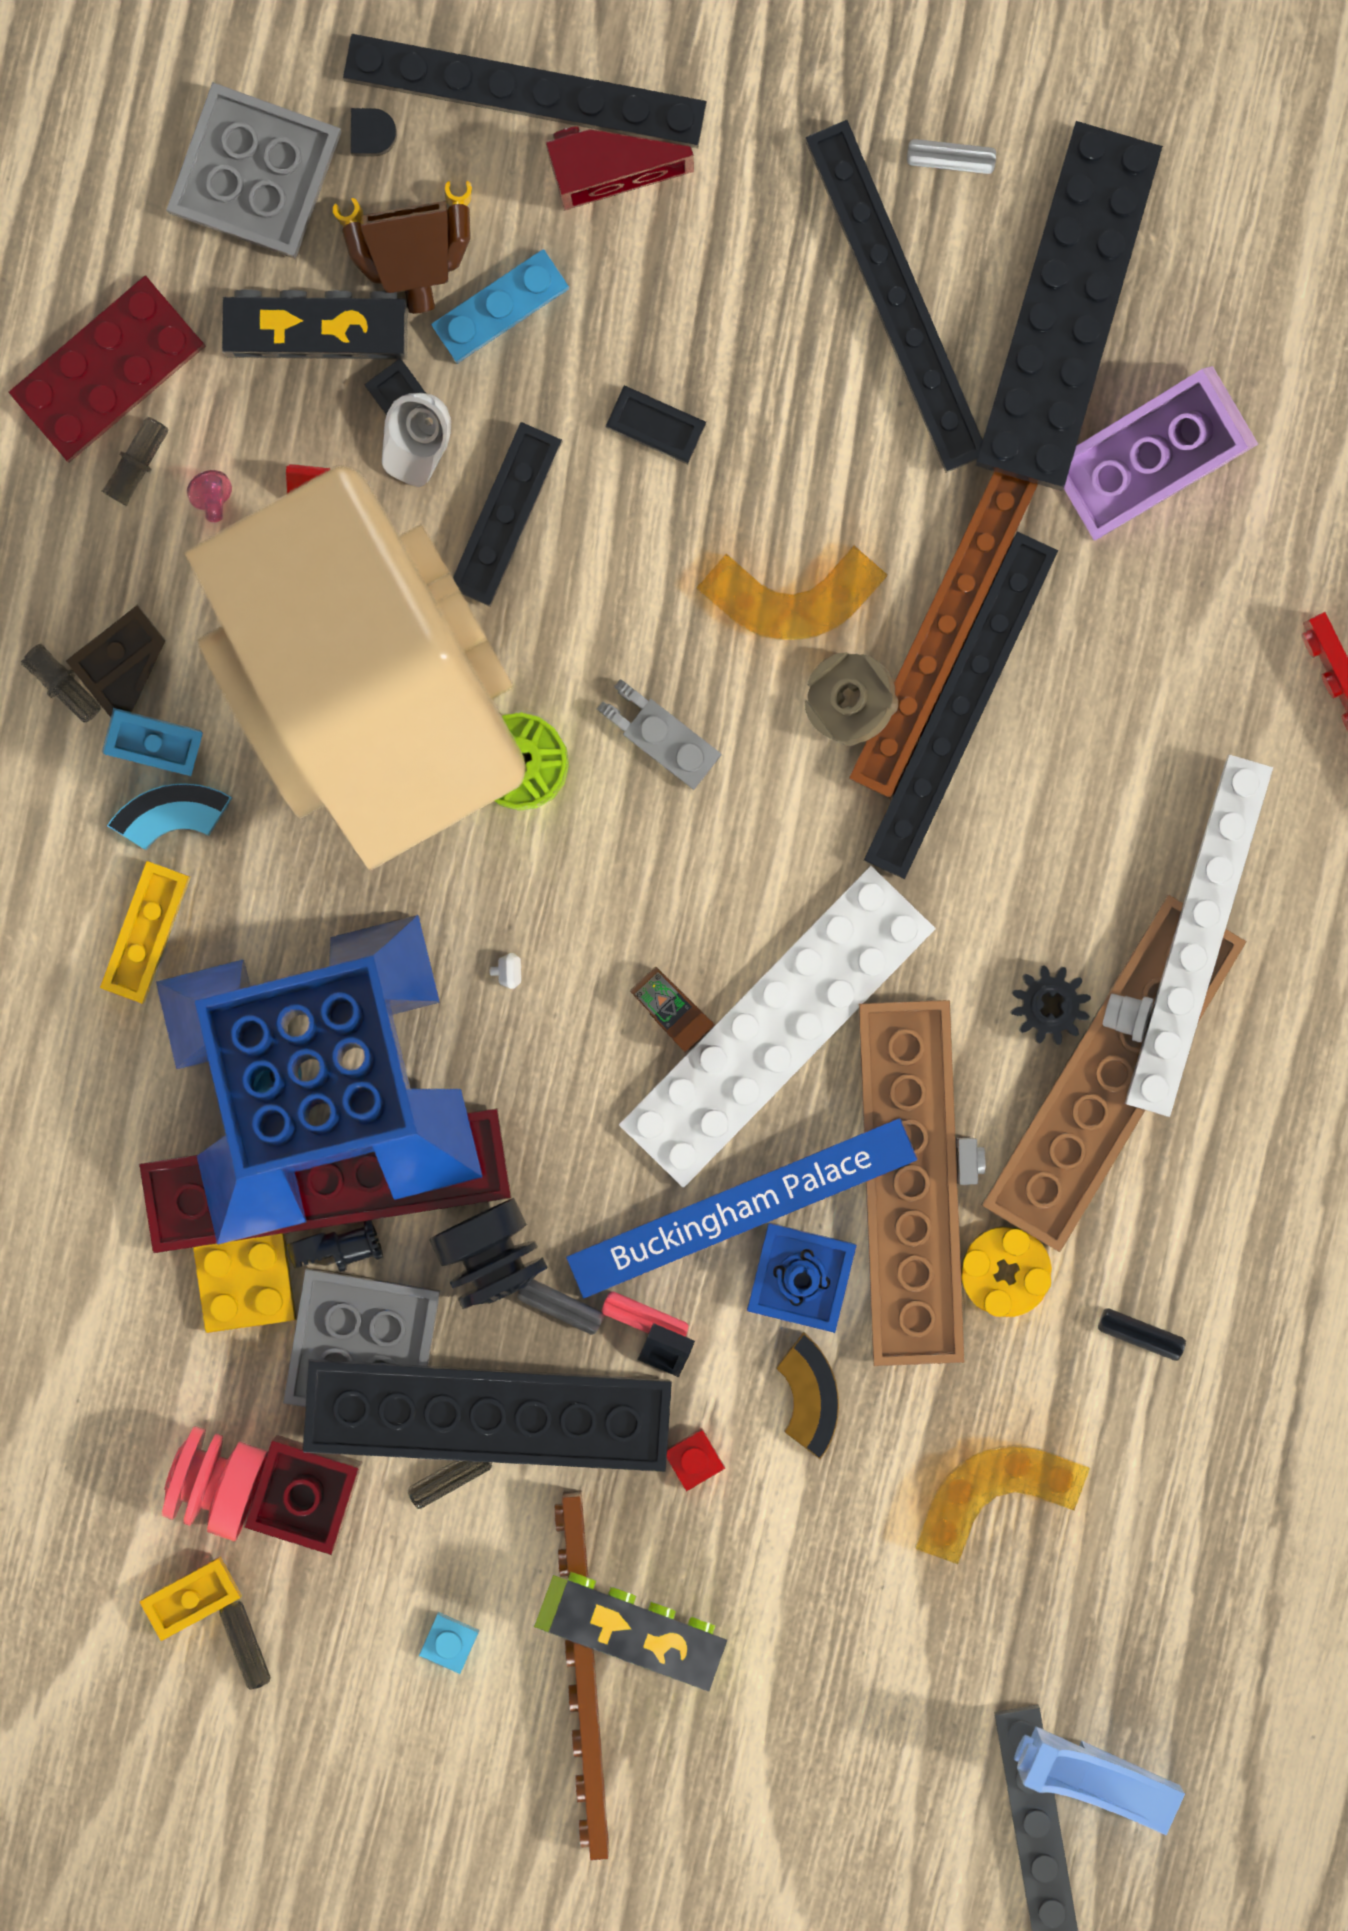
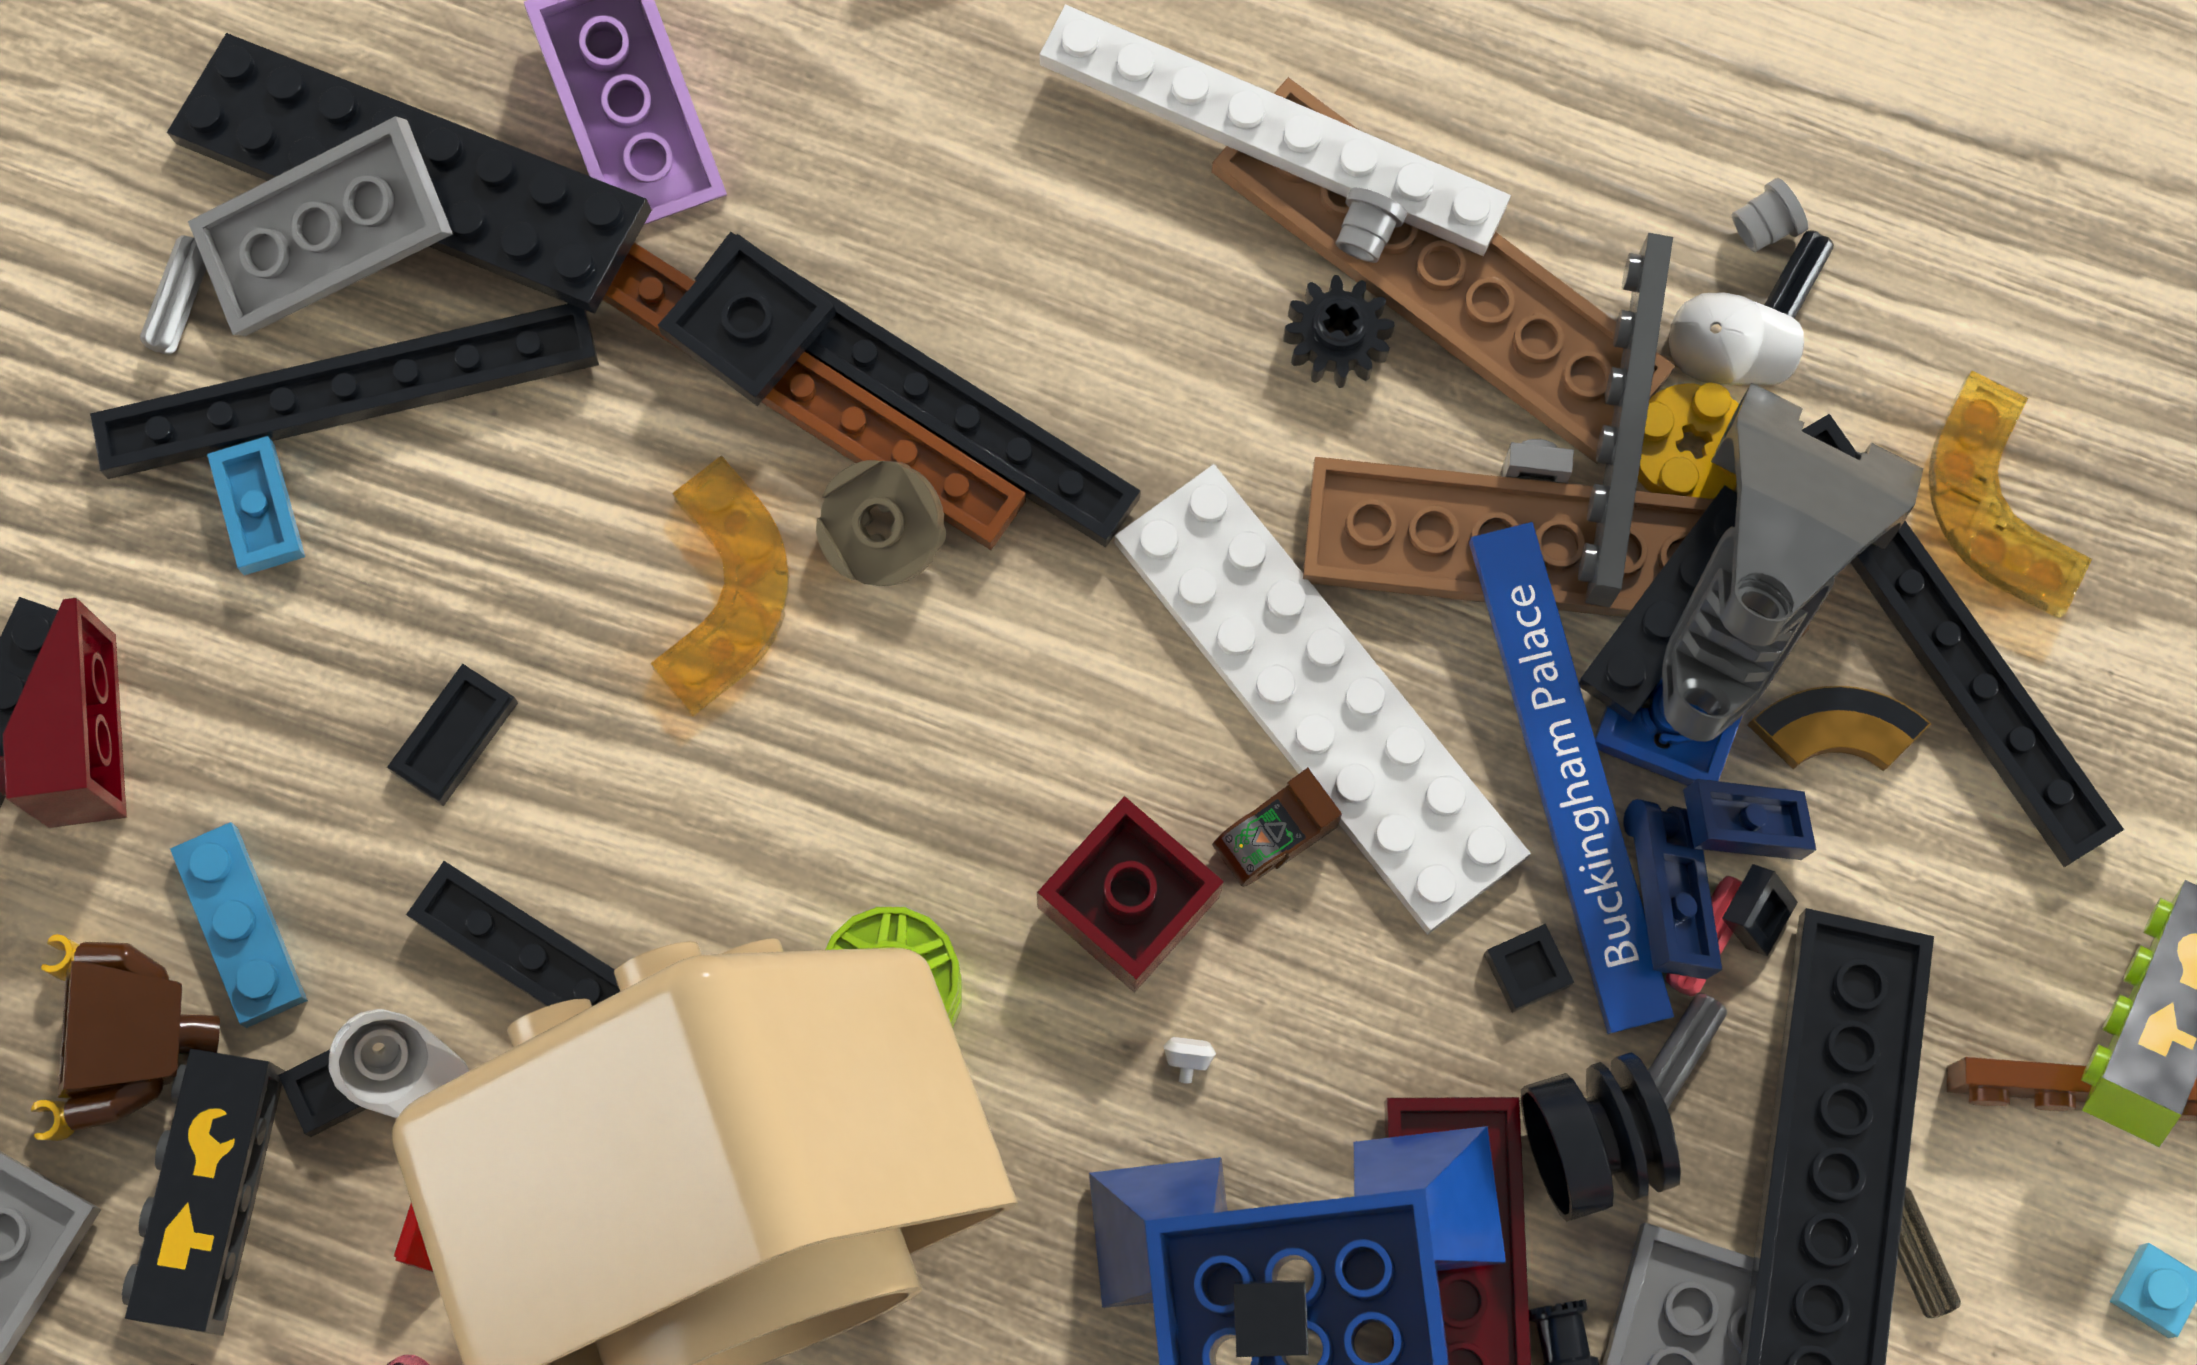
camera: 85 degrees left, 15 degrees down
(320, 1045) = (1270, 1318): none -> black tile
(604, 1196) = (1528, 968): none -> black tile
(607, 914) = (1129, 894): none -> dark red brick
(663, 737) = (890, 790): light grey hinge -> none
(669, 1288) = (1673, 891): none -> dark blue plate
(694, 1459) = (1916, 896): red plate -> none
(727, 1336) = (1749, 819): none -> dark blue plate
(799, 251) = (256, 505): none -> dark azure plate
(876, 1270) = (1633, 657): none -> black plate
(885, 1464) = (1981, 687): none -> black plate
(928, 1342) = (1796, 526): none -> dark grey piece
(985, 576) = (747, 319): none -> black plate
(1008, 255) = (320, 227): none -> light grey plate
(1026, 1218) = (1622, 443): none -> dark grey plate
(1090, 1306) = (1752, 346): none -> white cap
(1191, 1311) = (1770, 216): none -> light grey piece

